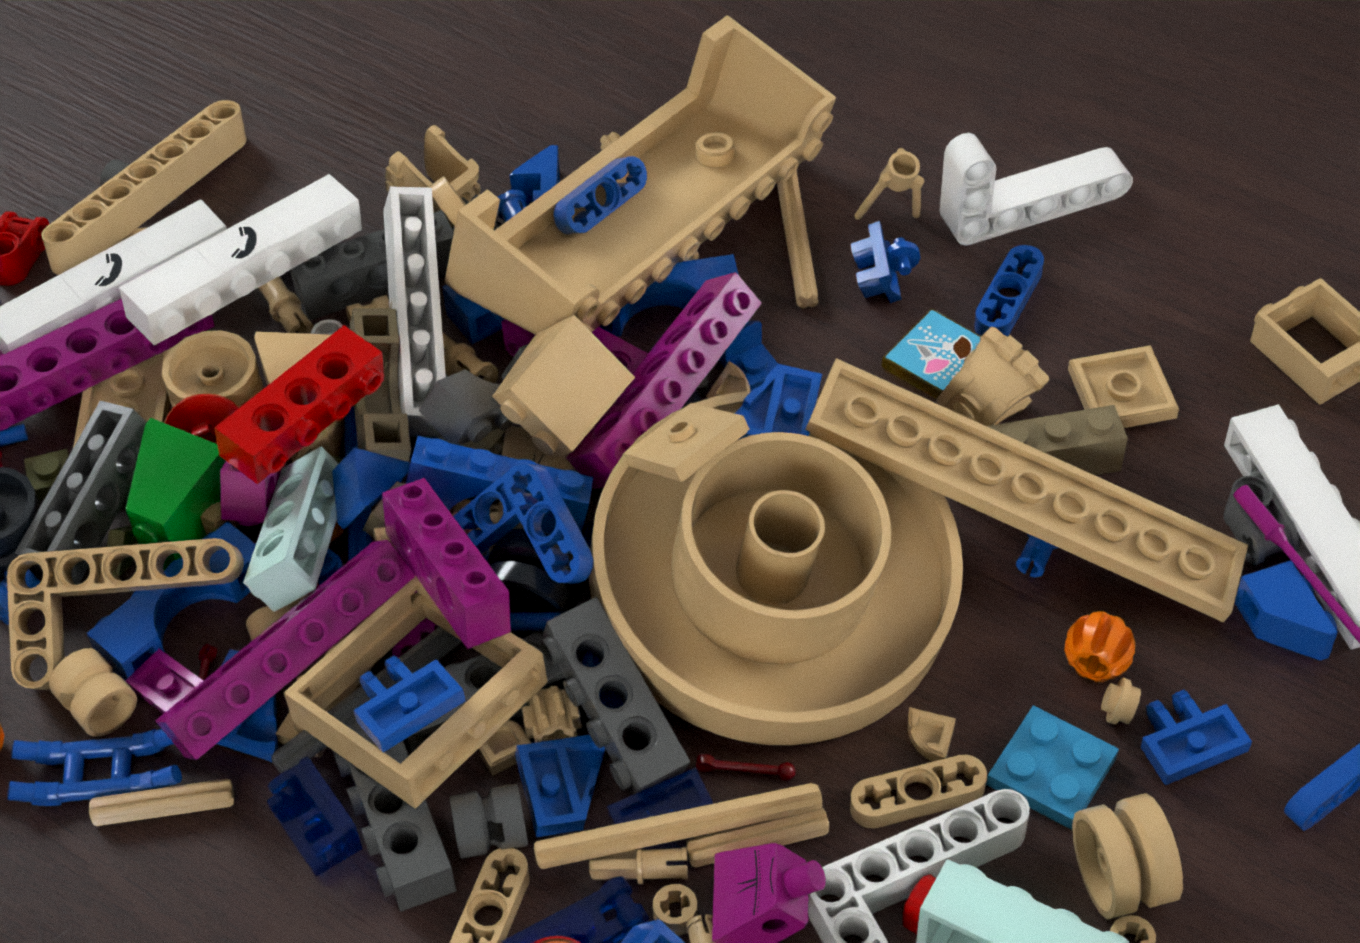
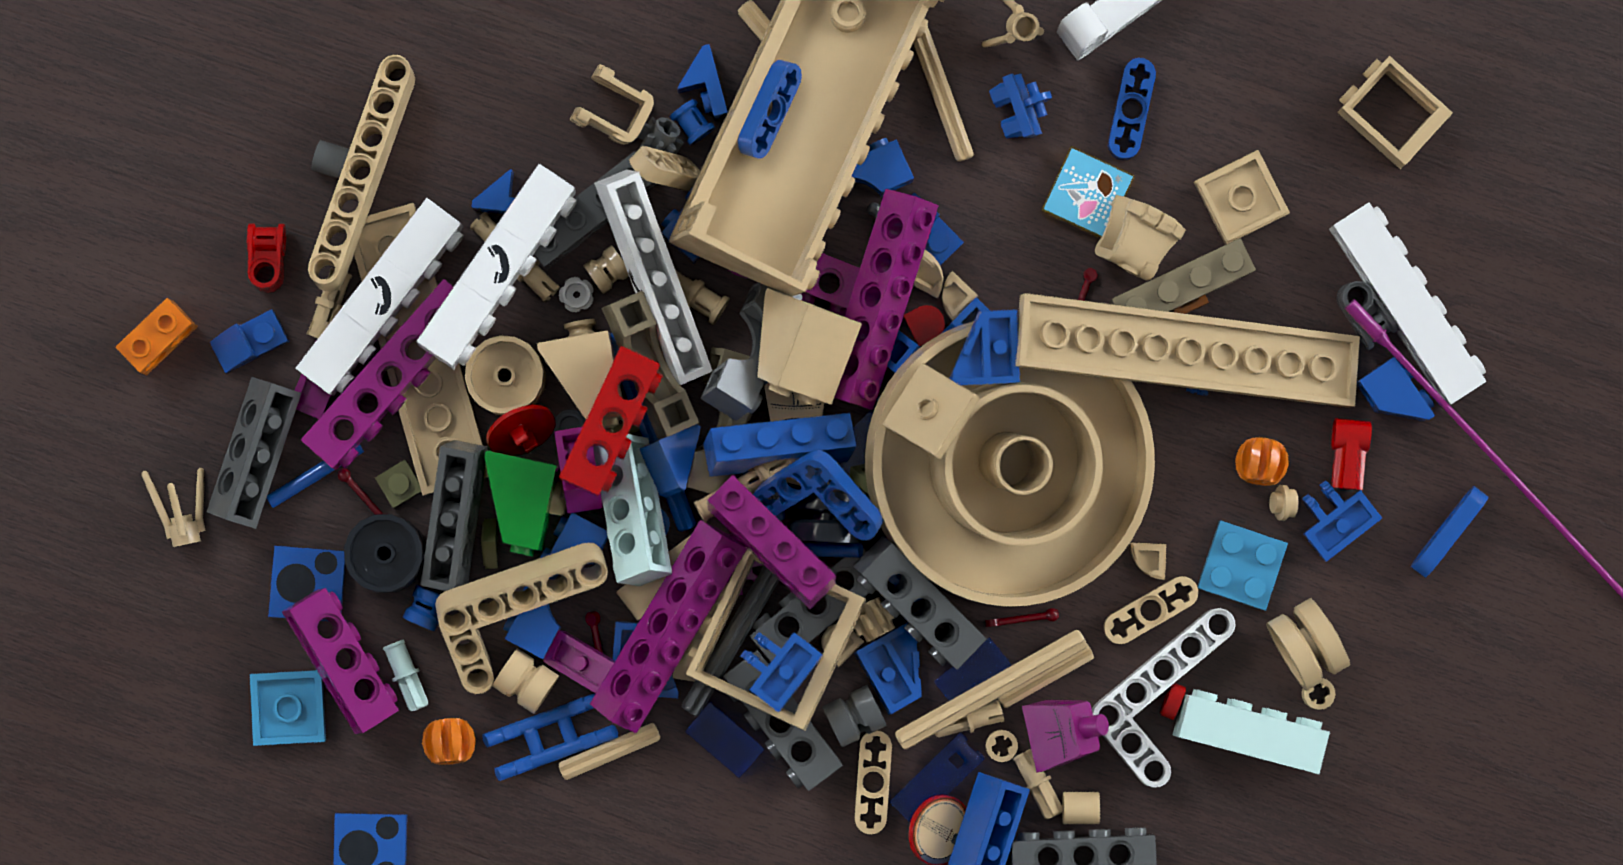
camera: 20 degrees left, 35 degrees up
(1218, 660) = (1350, 444): none -> red piece

